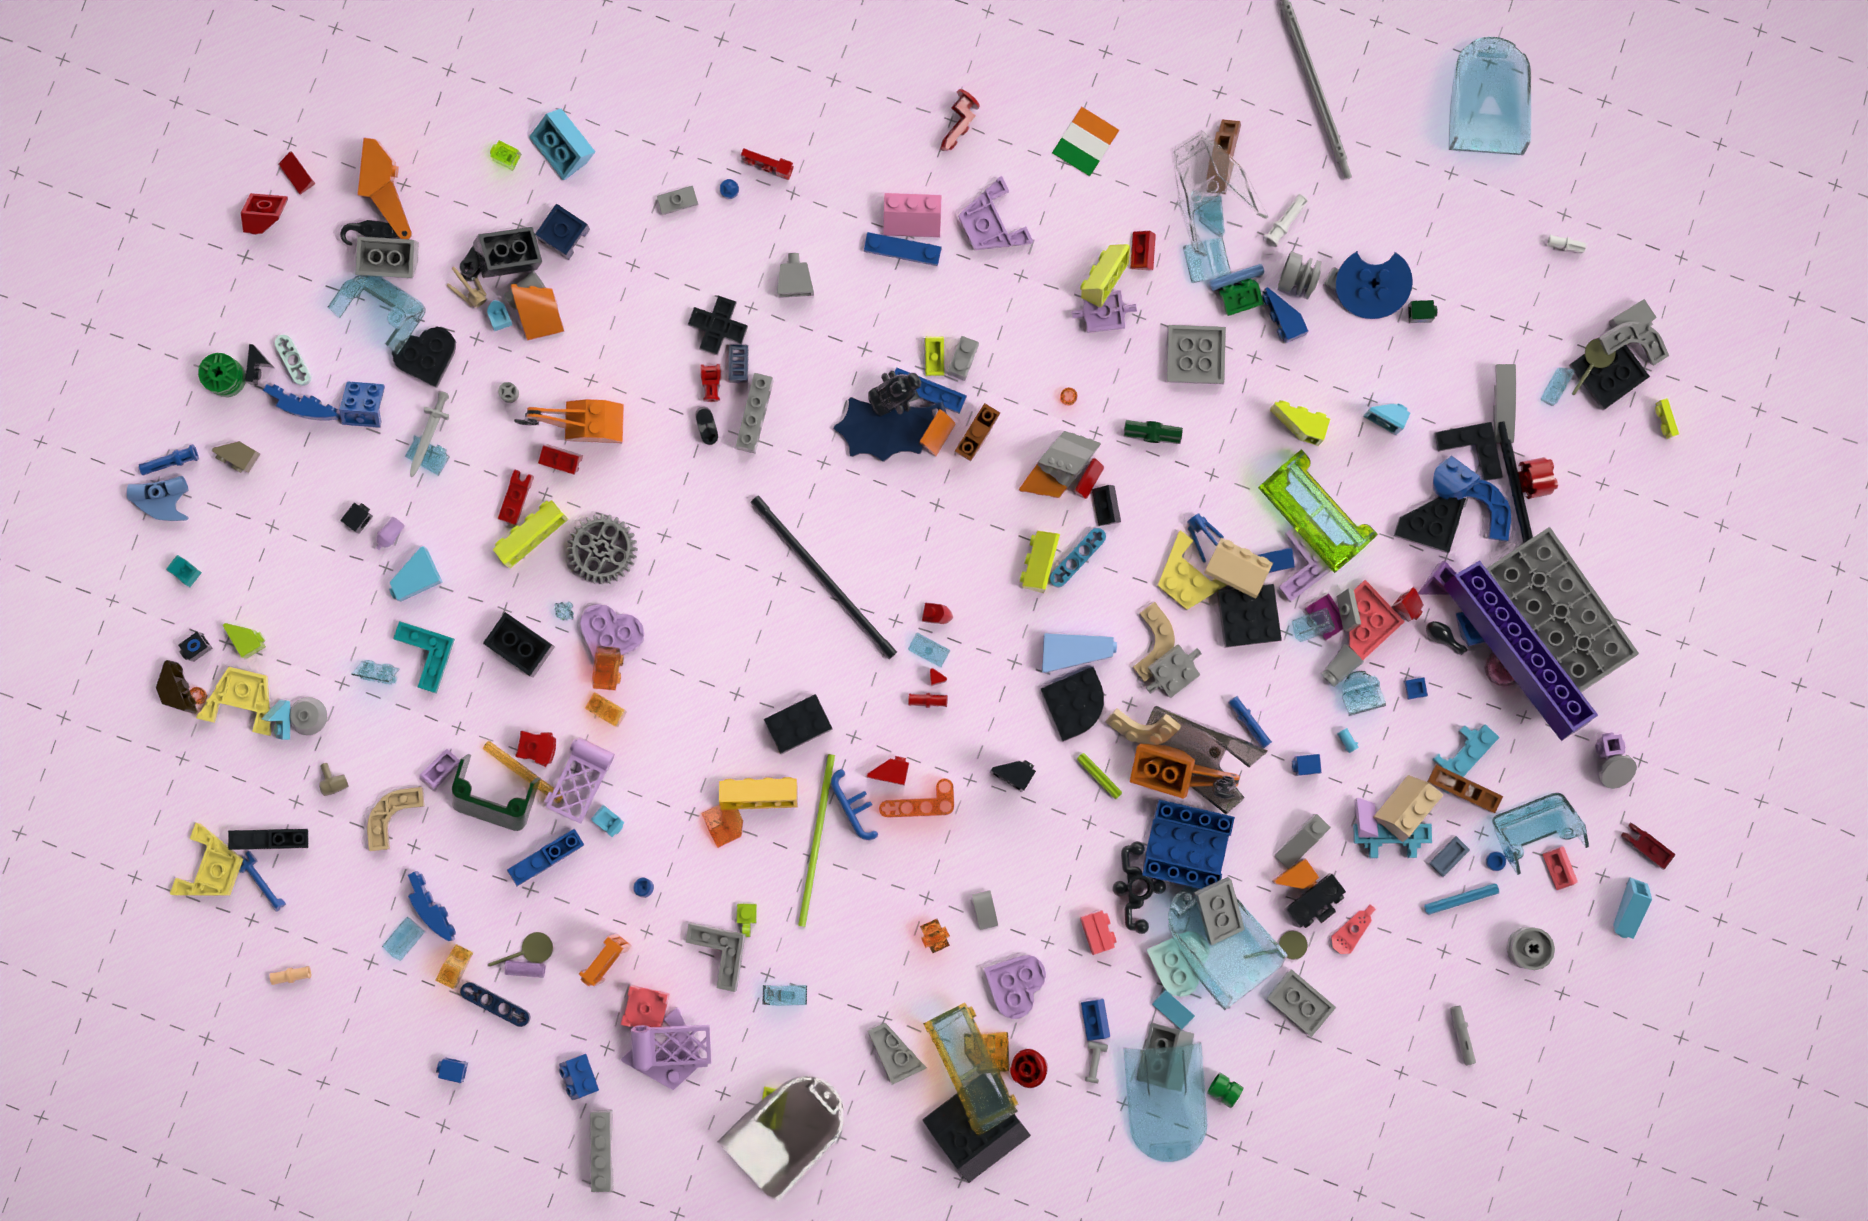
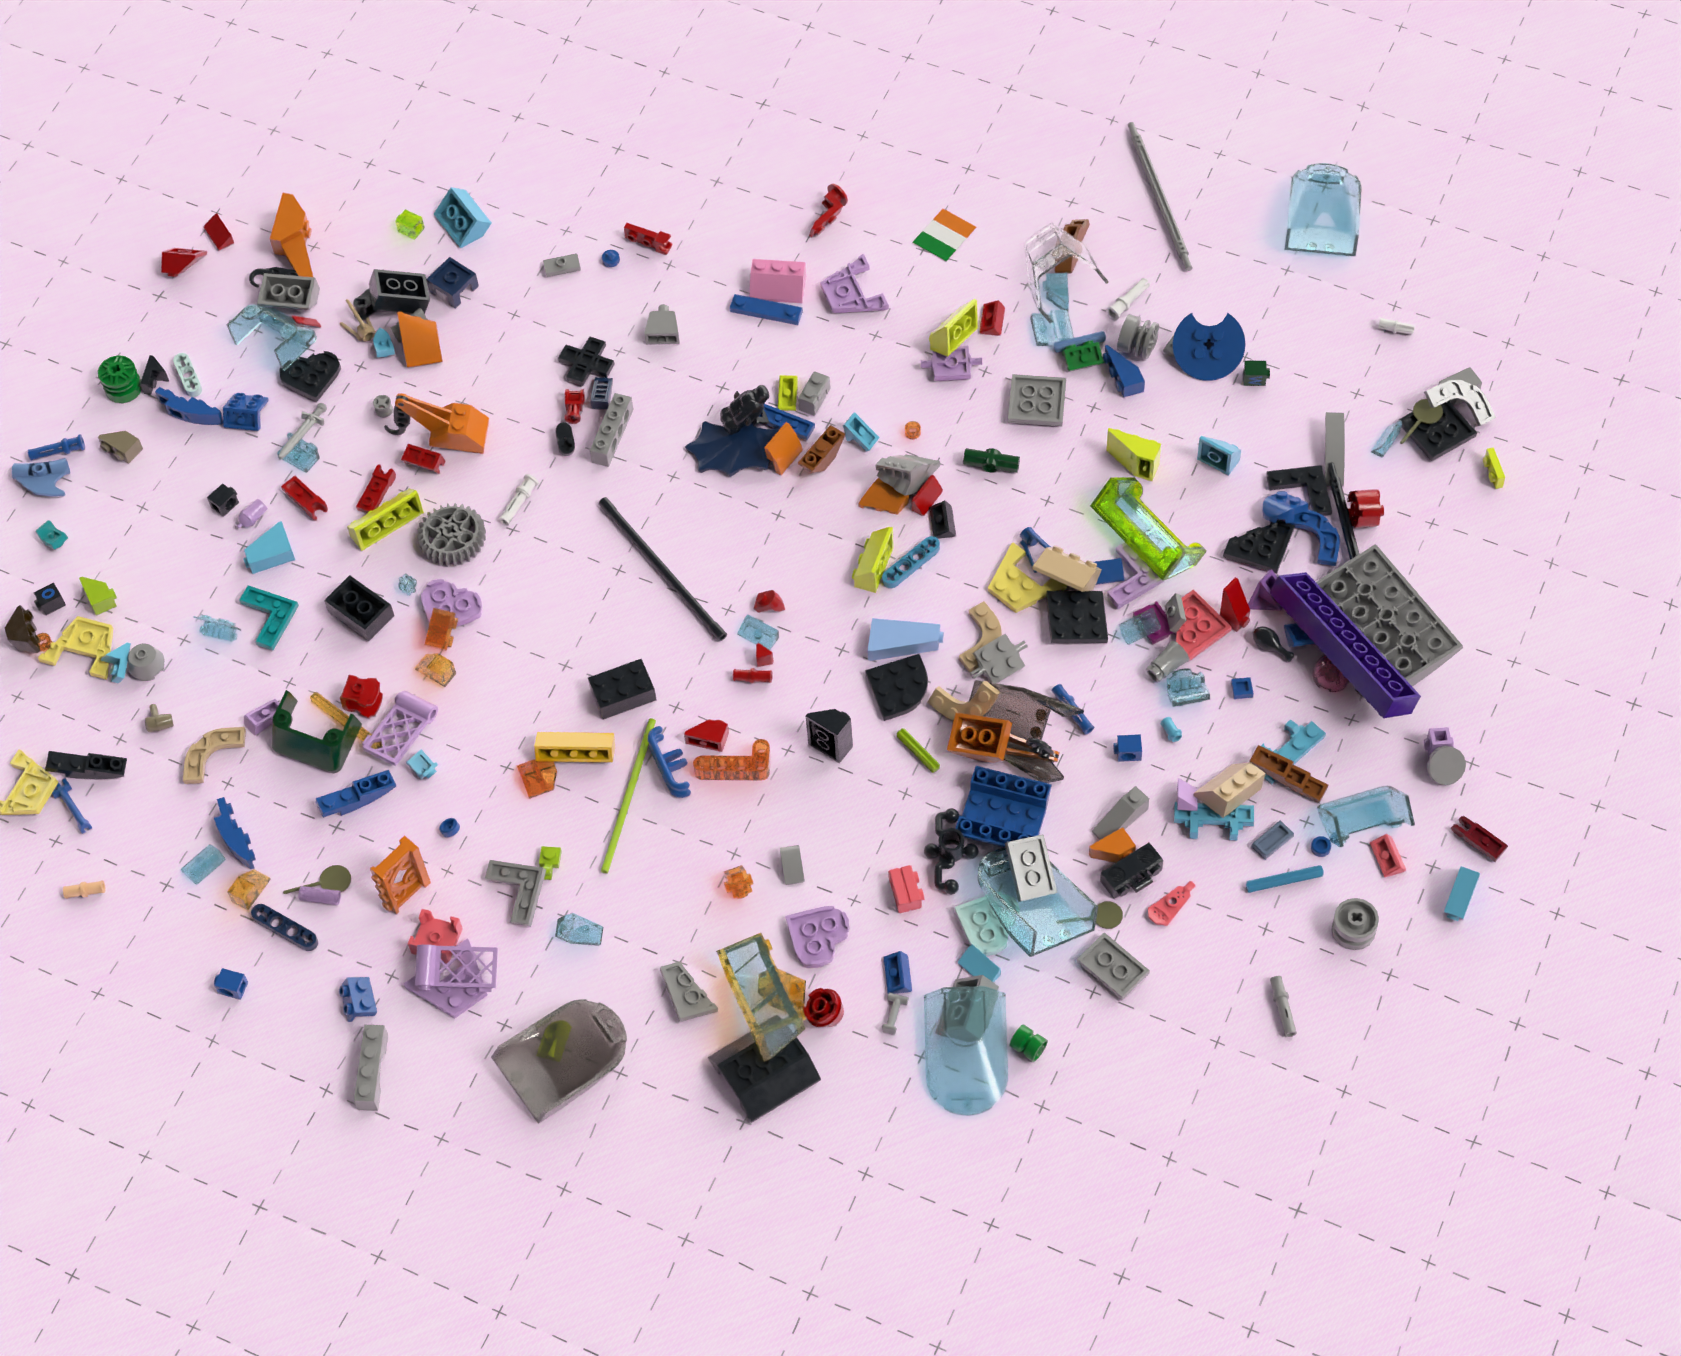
camera: 10 degrees right, 25 degrees down
(411, 290) = (306, 321): none -> window
(440, 508) = (304, 497): none -> red plate
(669, 495) = (522, 492): none -> white pin
(1016, 406) = (858, 430): none -> medium azure slope

